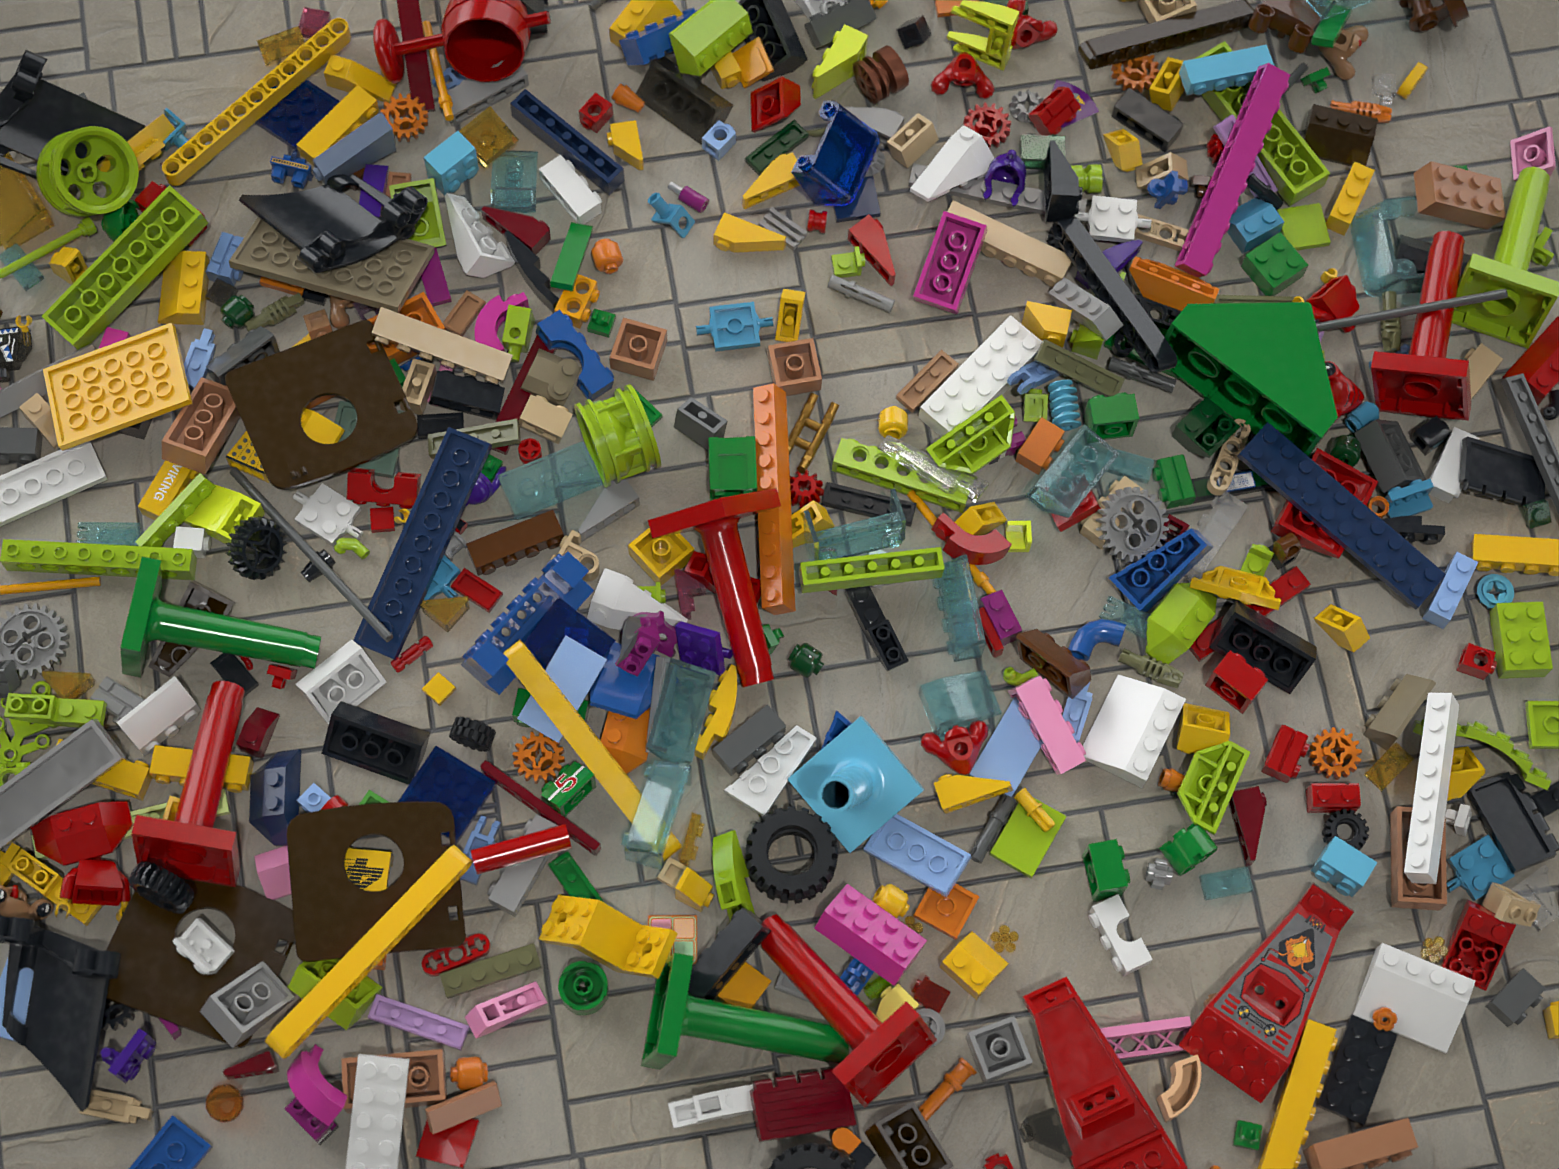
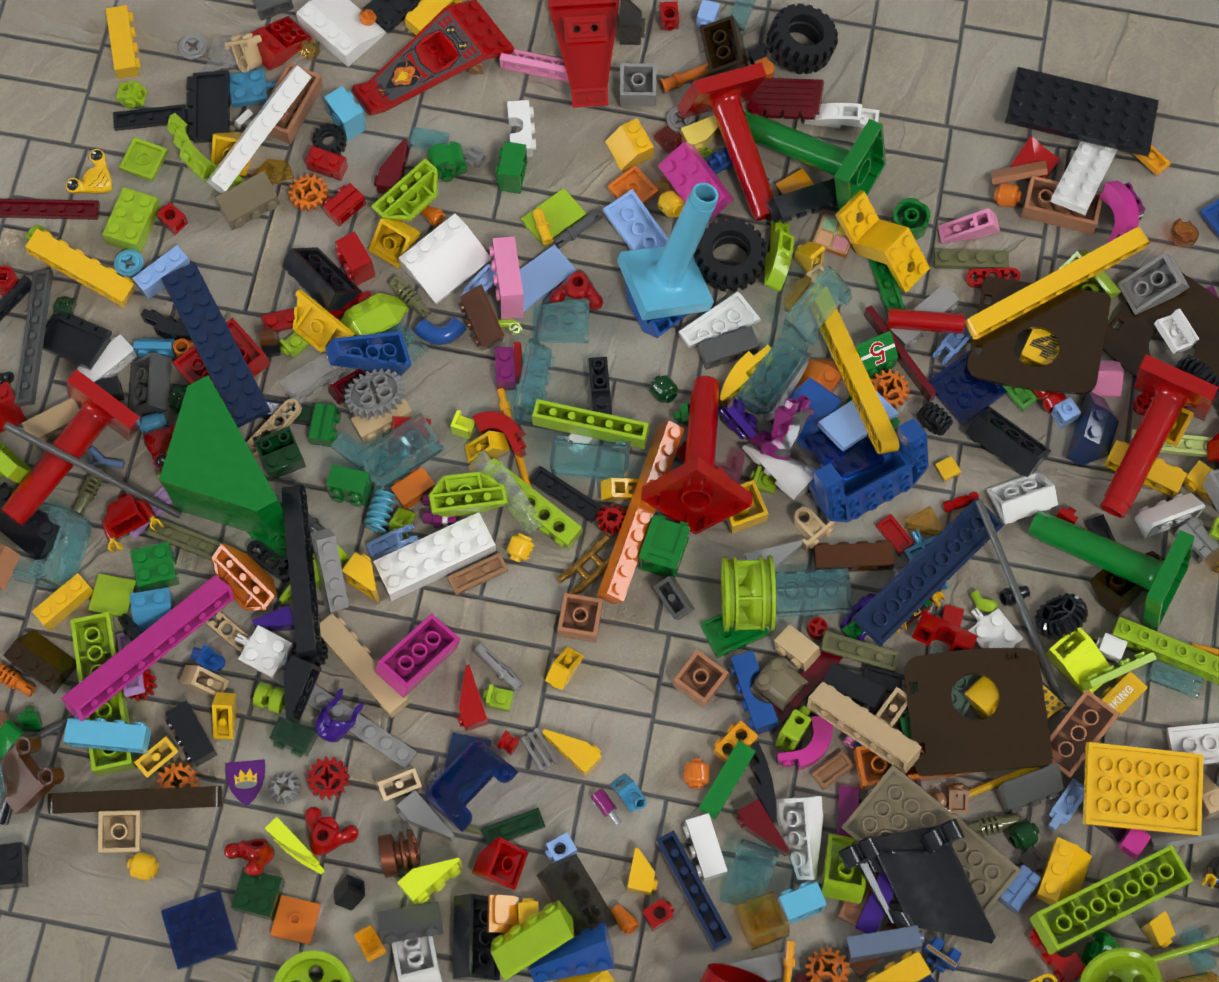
camera: 155 degrees left, 0 degrees up
(255, 1066) = (1156, 249): dark red slope -> none
(257, 732) = (1095, 481): dark red slope -> none
(418, 1022) = (1032, 243): lavender tile -> none
(601, 323) = (720, 720): green tile -> none
(734, 326) = (613, 675): dark azure plate -> none
(773, 181) = (526, 794): yellow slope -> none
(959, 160) = (370, 745): white wedge -> none
(962, 791) = (586, 256): yellow slope -> none
(1004, 940) = (601, 157): clear yellow plant -> none
(1054, 111) = (265, 767): red brick -> none
(1078, 369) = (355, 534): olive plate -> none
(1182, 1089) = (526, 20): light nougat brick -> none
(1201, 183) = (175, 660): reddish brown tile -> none
(1343, 627) = (255, 276): yellow slope -> none

